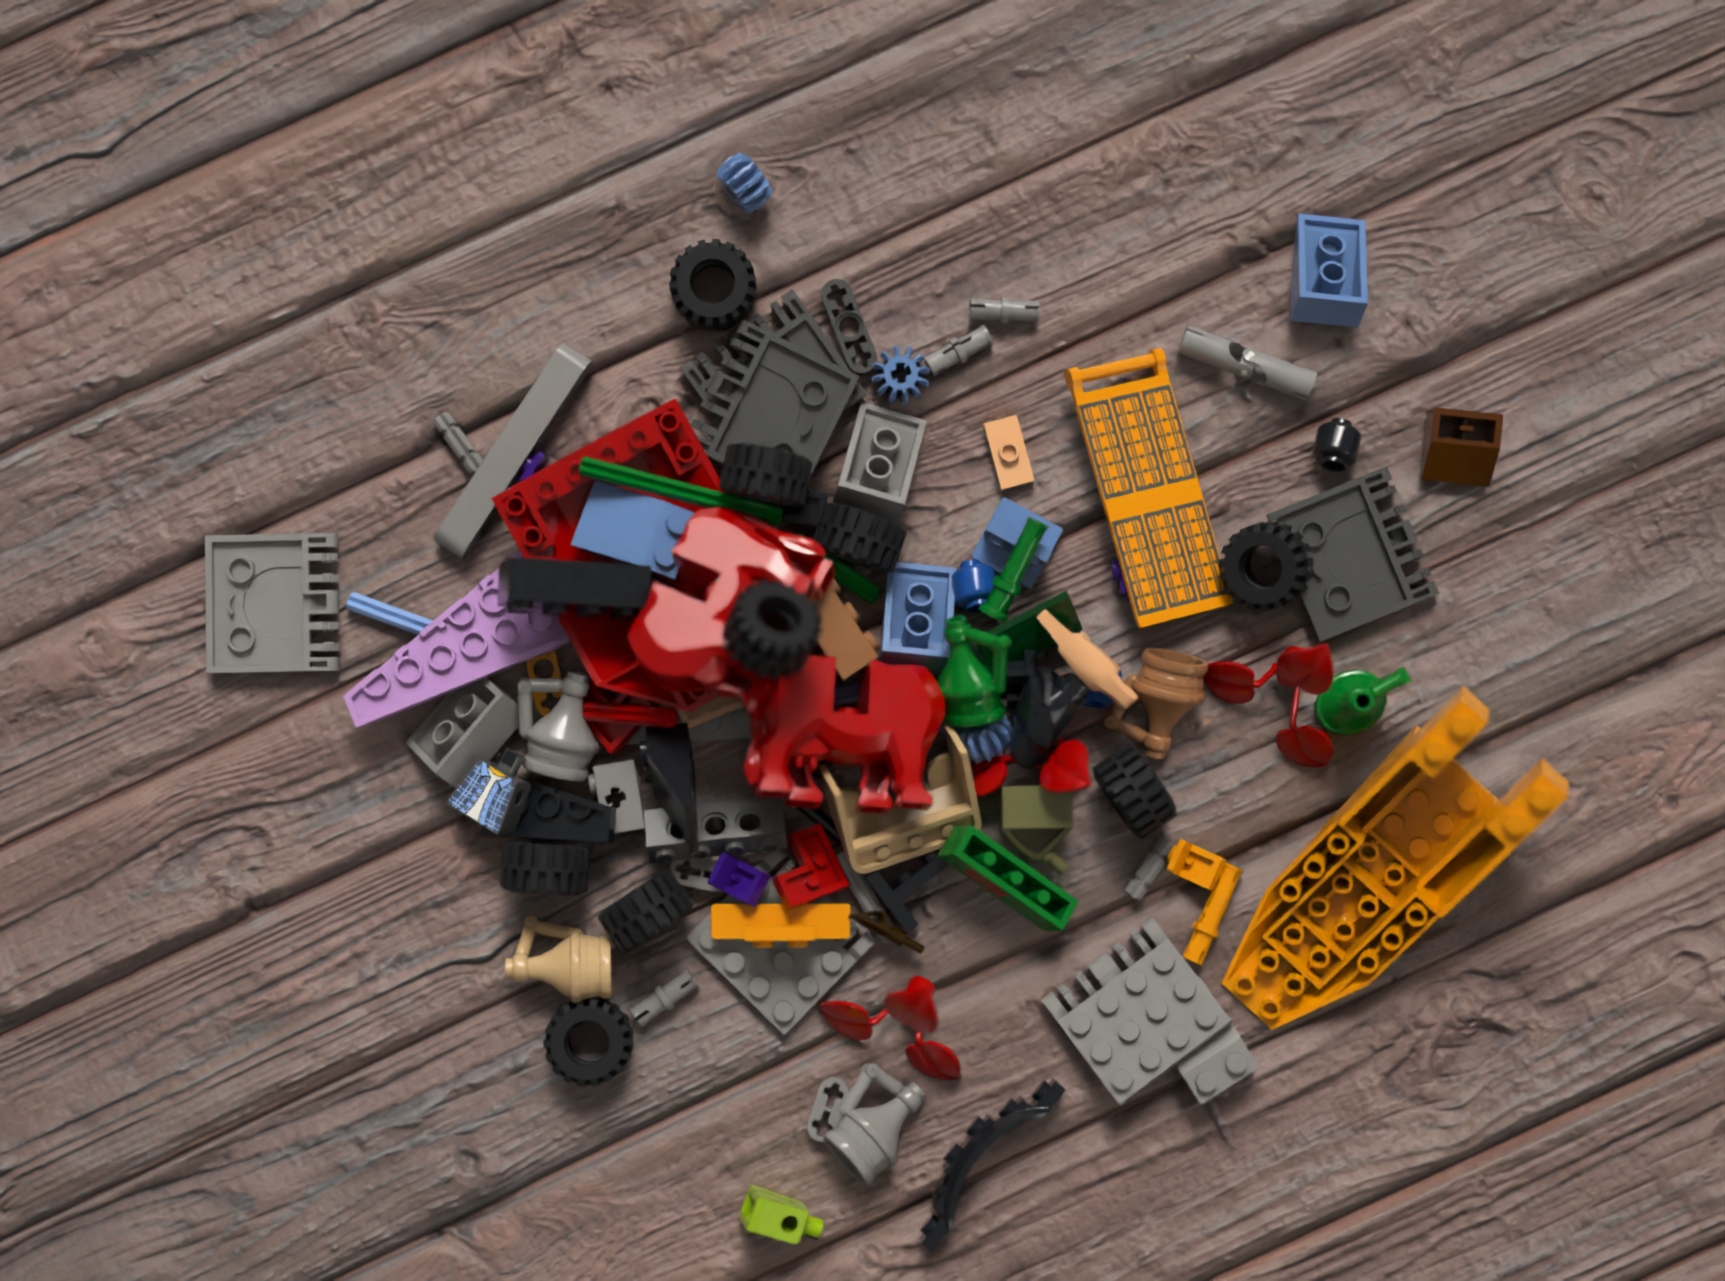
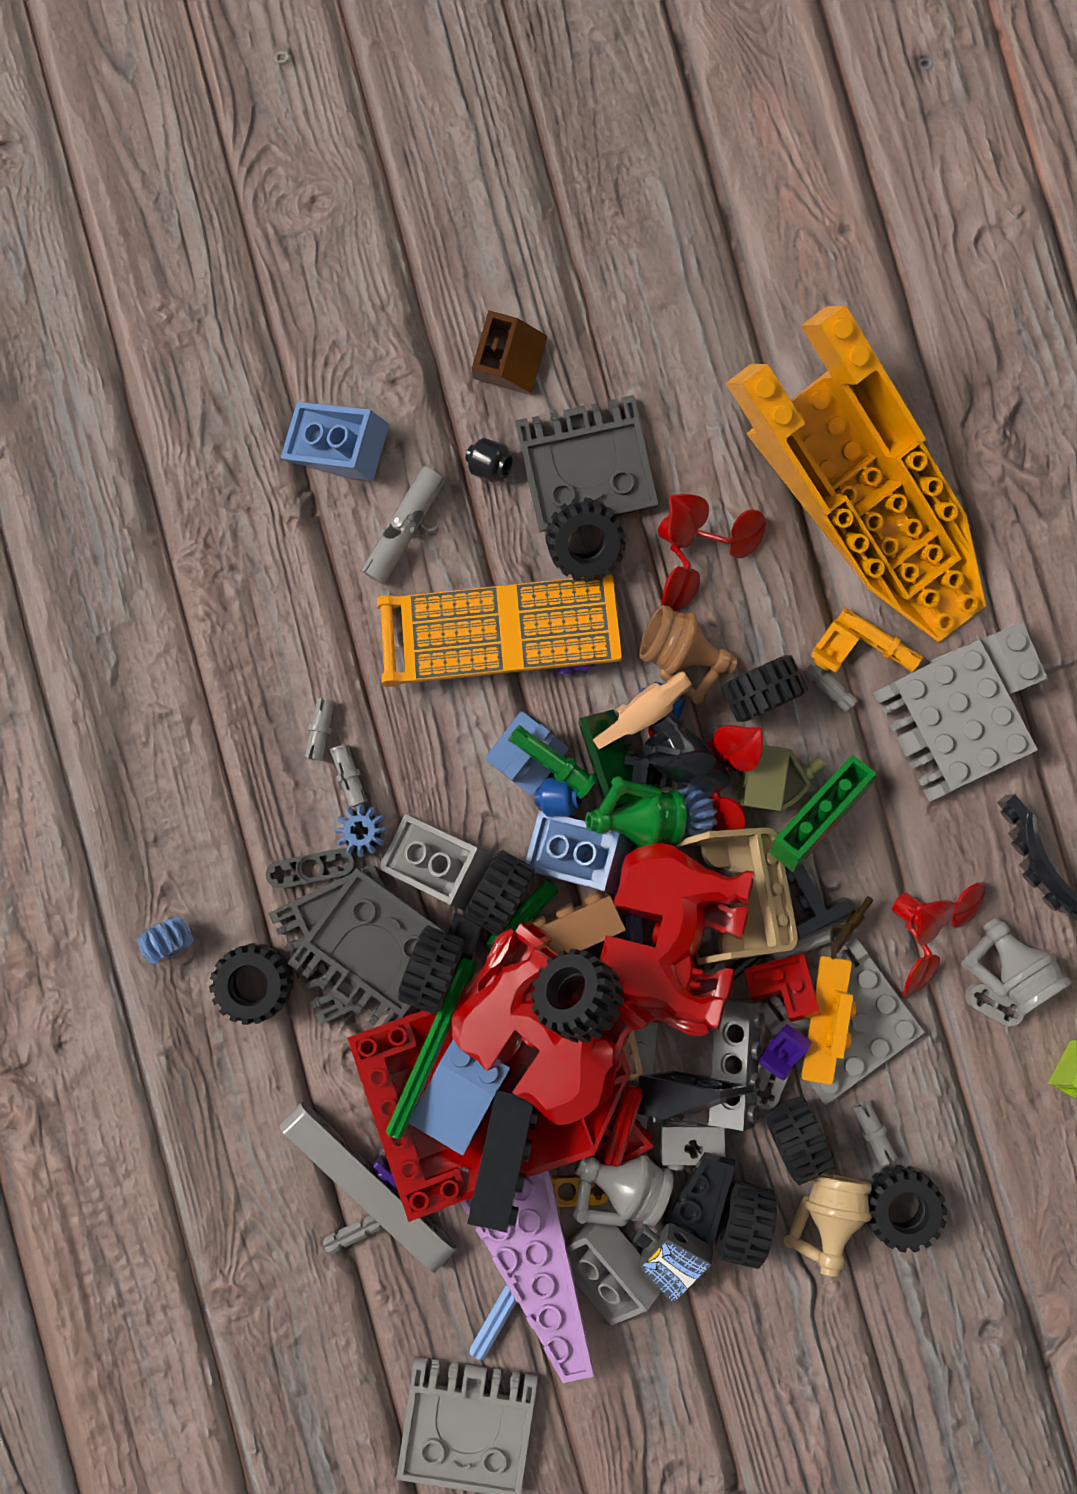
camera: 75 degrees left, 0 degrees up
(1008, 452) = (445, 746): light nougat plate -> none
(1338, 709) = (723, 496): green piece -> none

